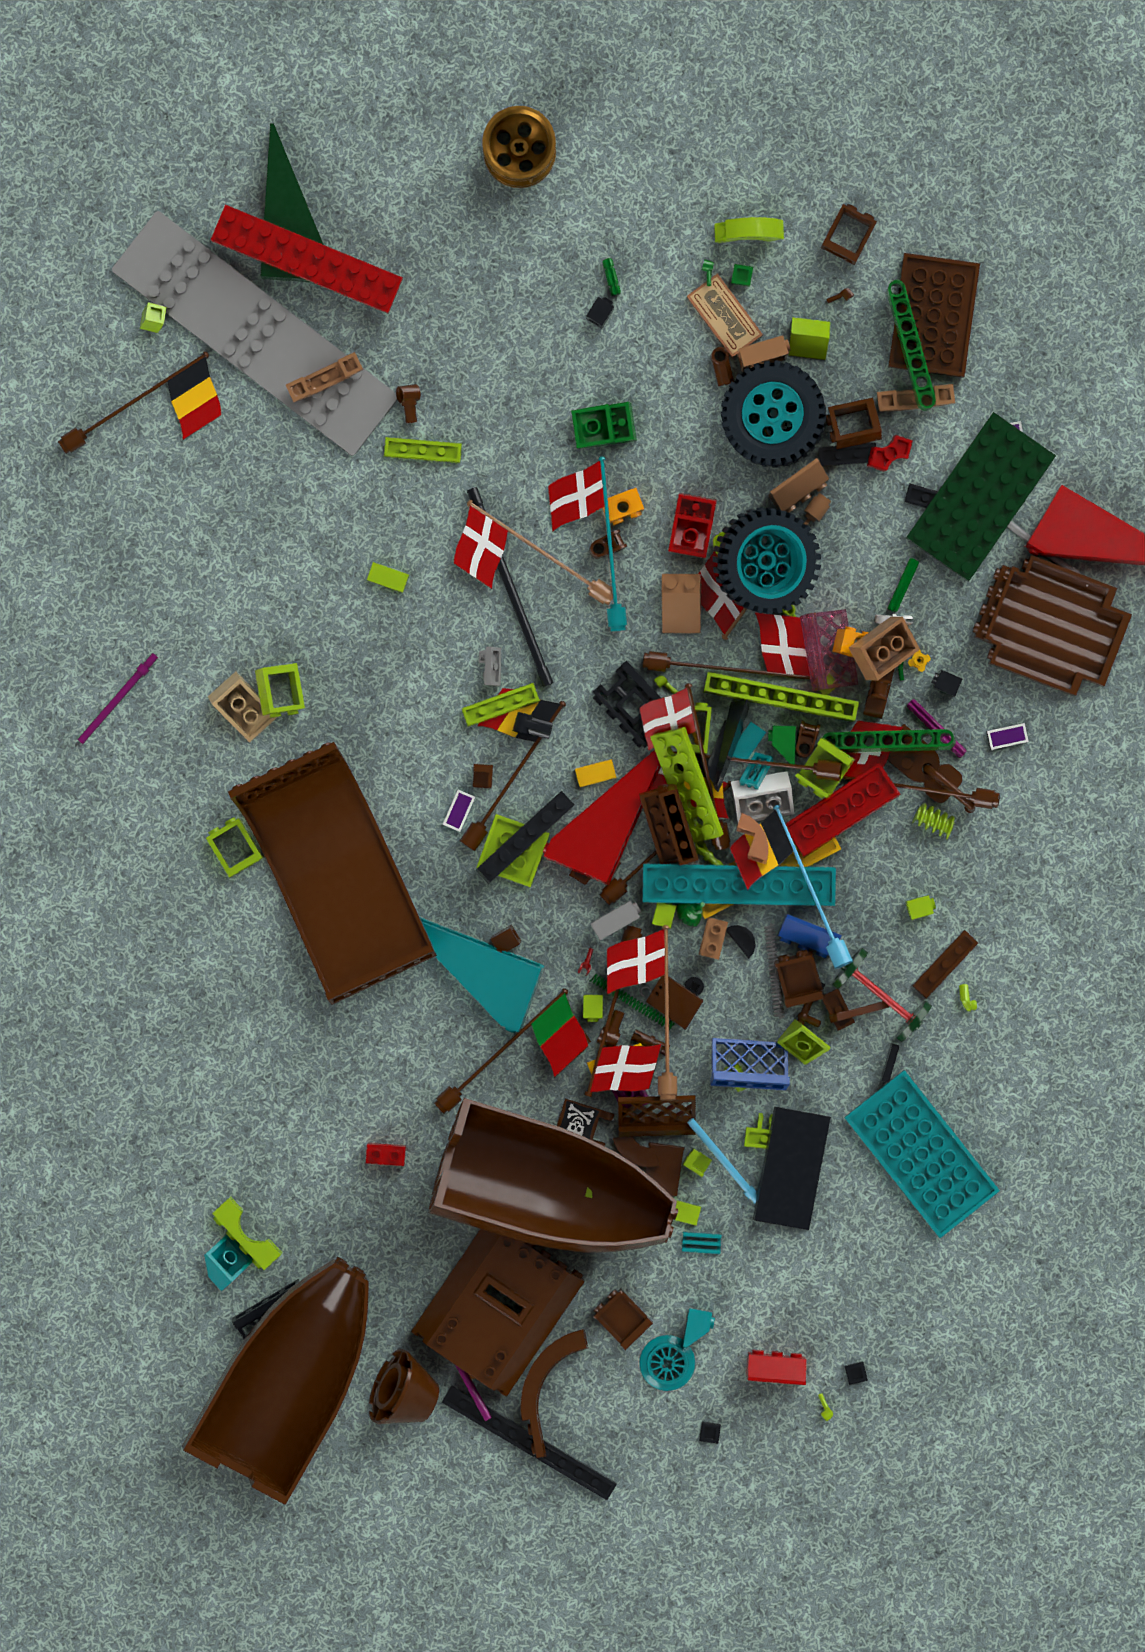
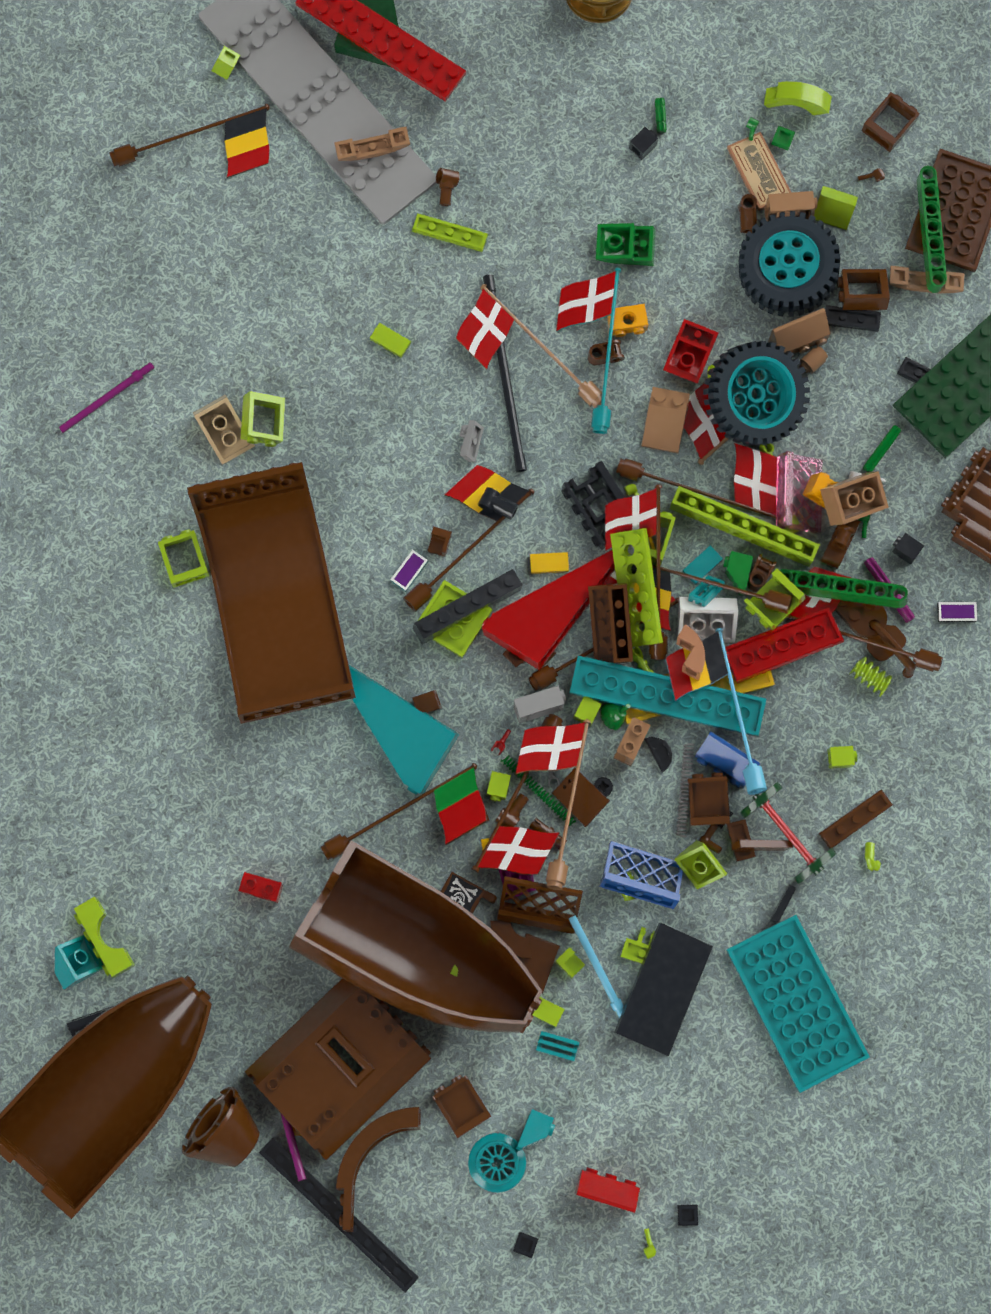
camera: 10 degrees right, 10 degrees down
(500, 704) = (471, 479): lime tile -> none
(727, 742) = (684, 557): black wedge -> none
(882, 457) = (885, 325): red tile -> none
(919, 665) = (884, 517): yellow plate -> none

